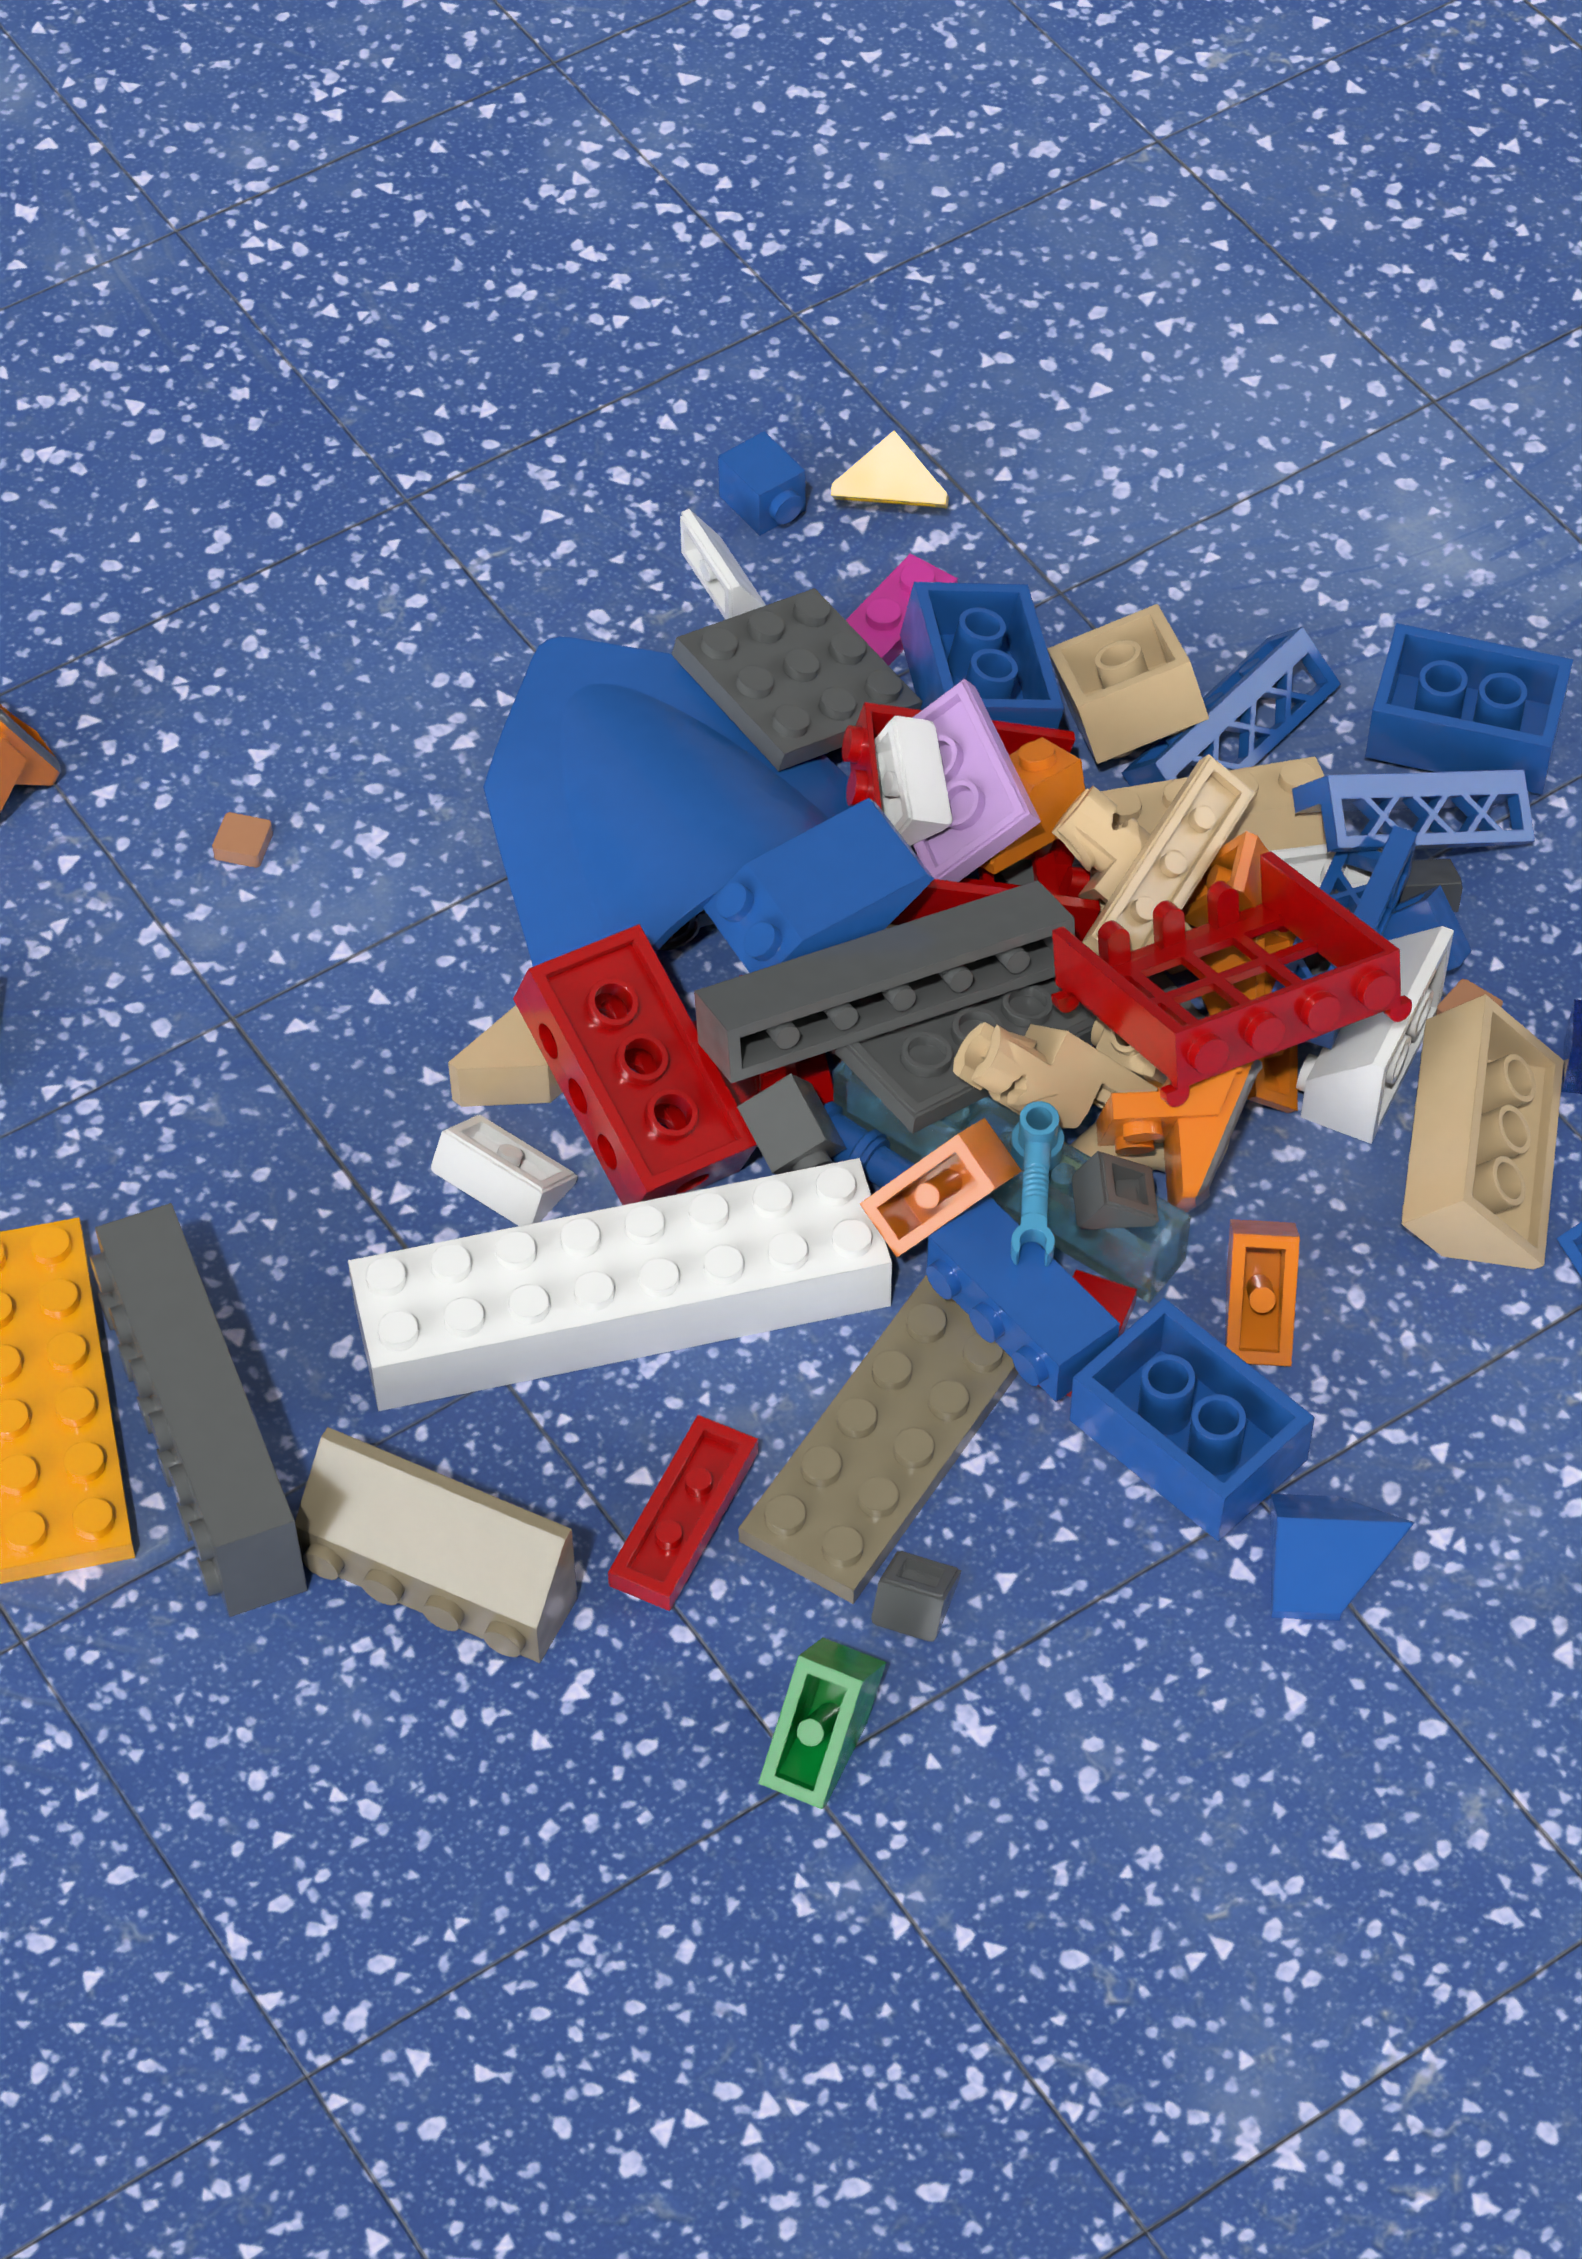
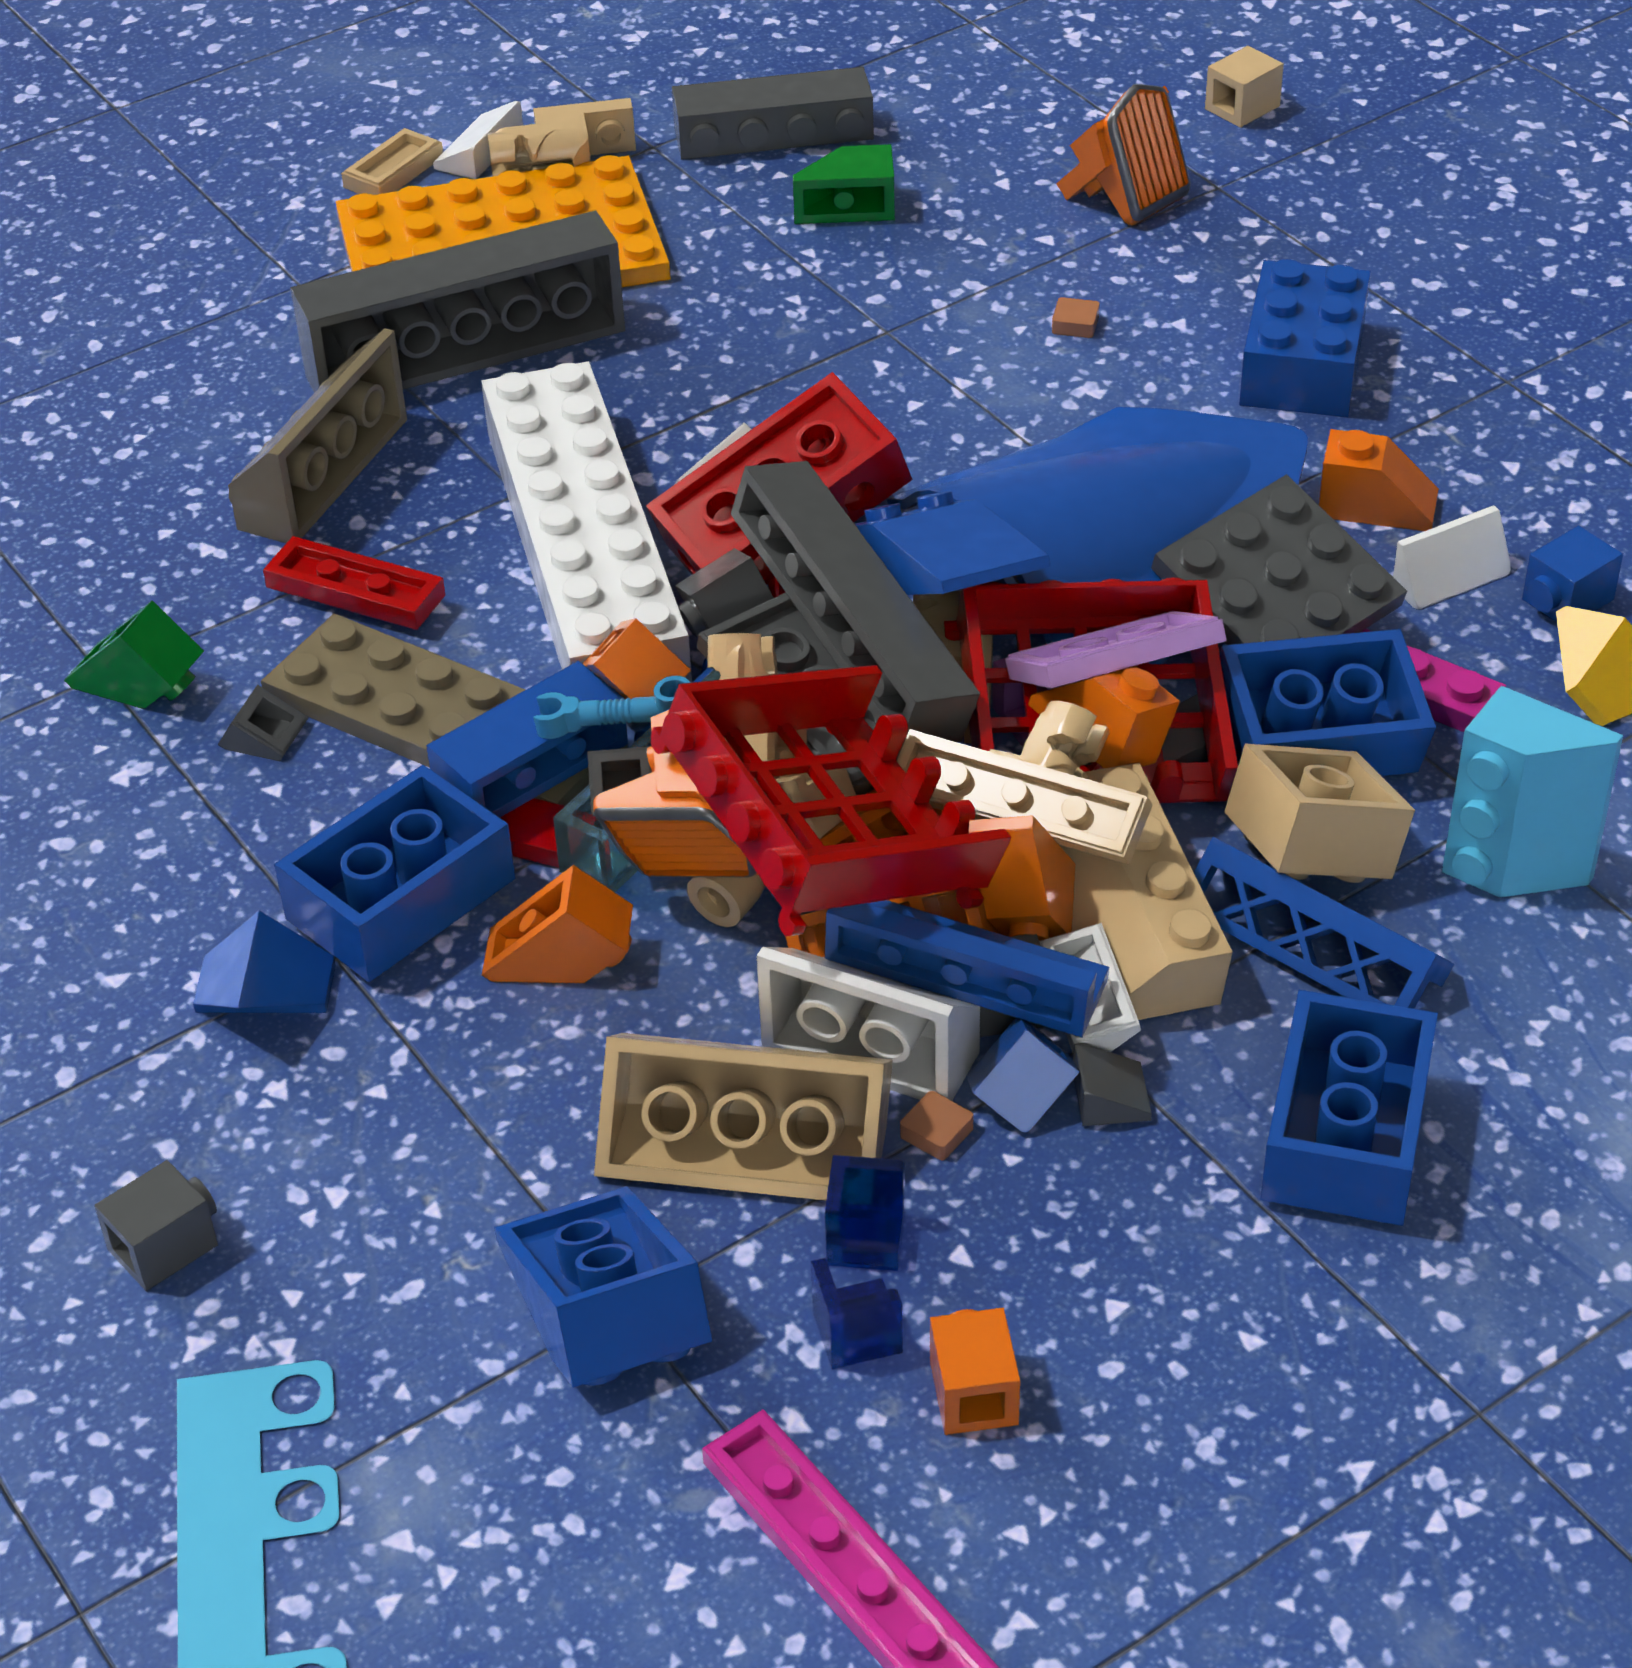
camera: 90 degrees right, 10 degrees down
(346, 634) = (1304, 338): none -> blue brick
(602, 607) = (1374, 483): none -> orange slope
(912, 778) = (1111, 612): white slope -> none
(1133, 529) = (1529, 797): none -> medium azure slope
(1425, 796) = (1190, 1028): fence -> none

